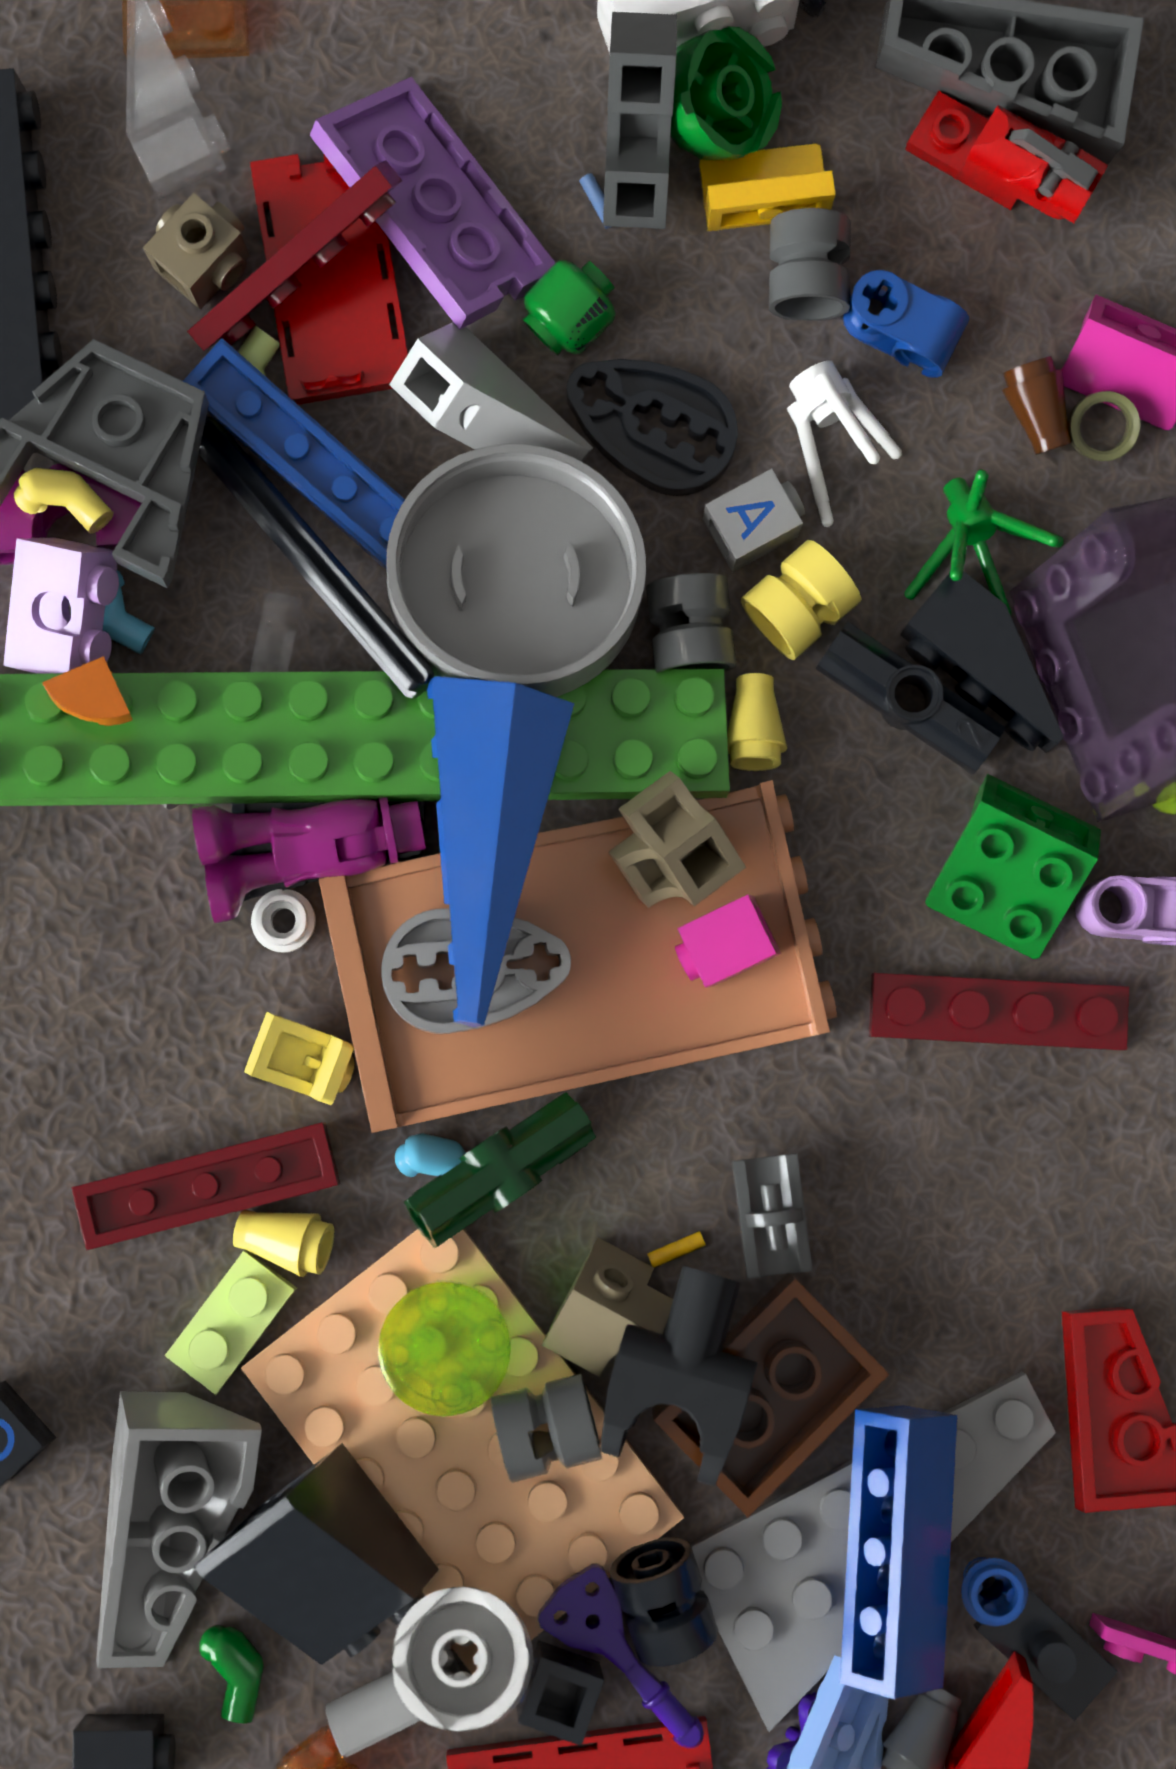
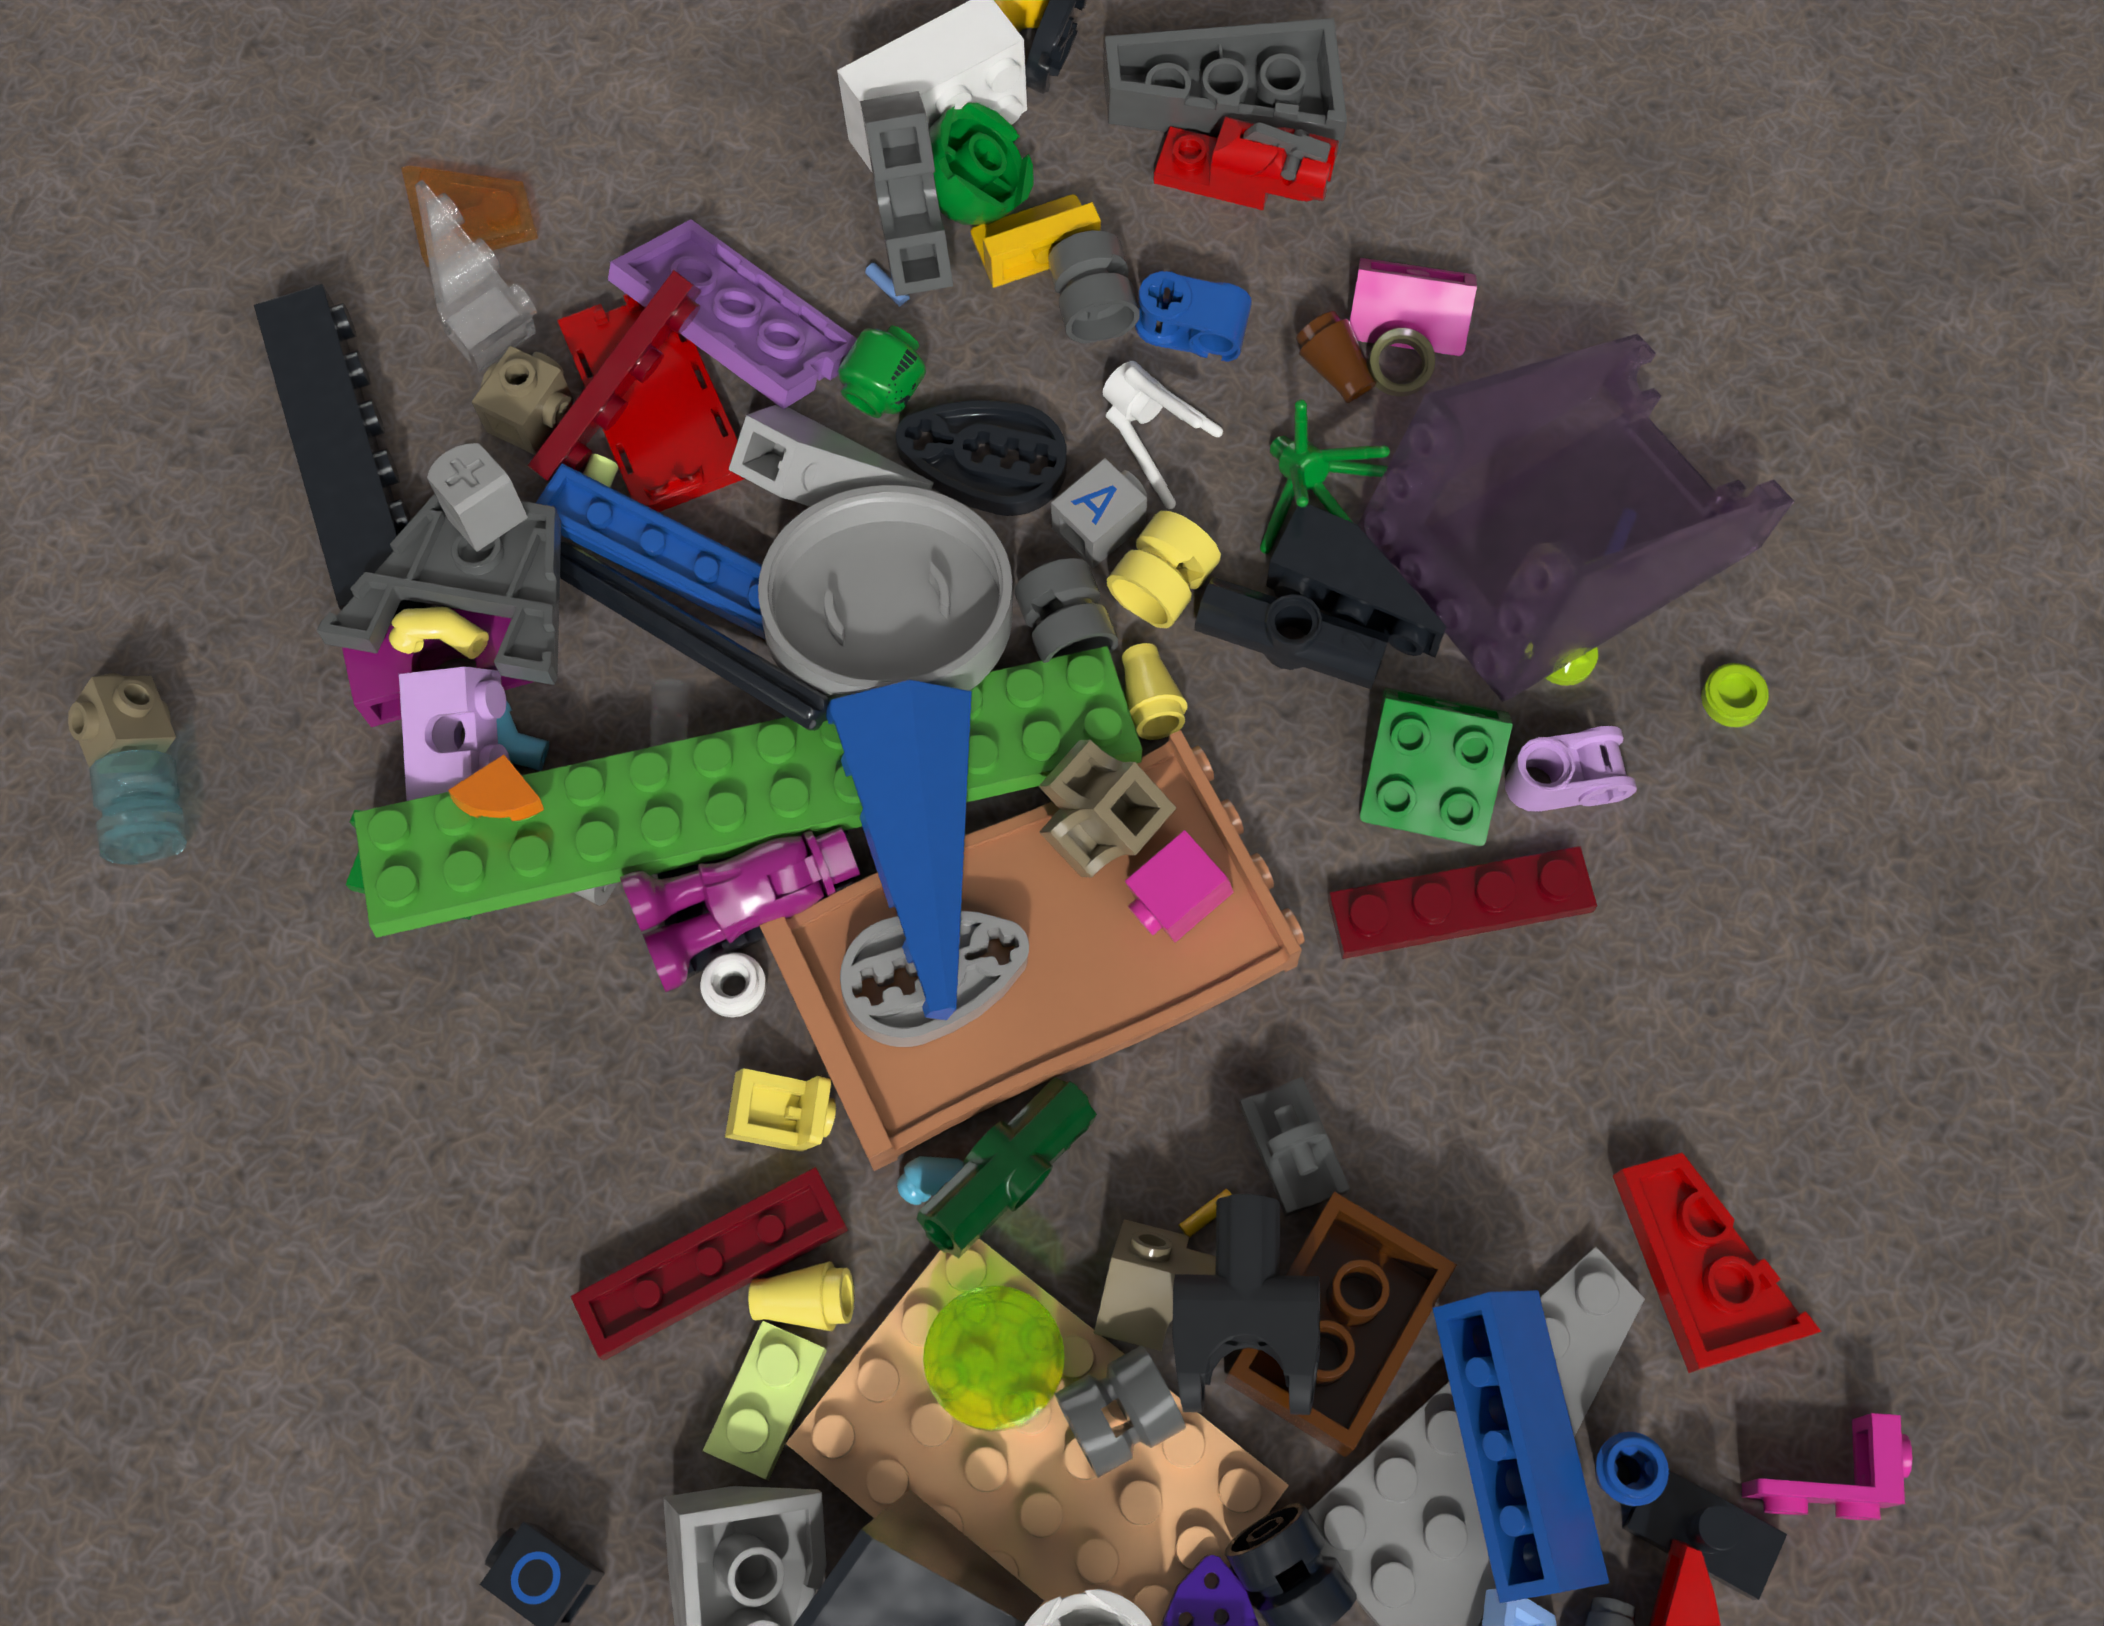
camera: 10 degrees left, 15 degrees down
(125, 366) = (475, 494): none -> light grey piece

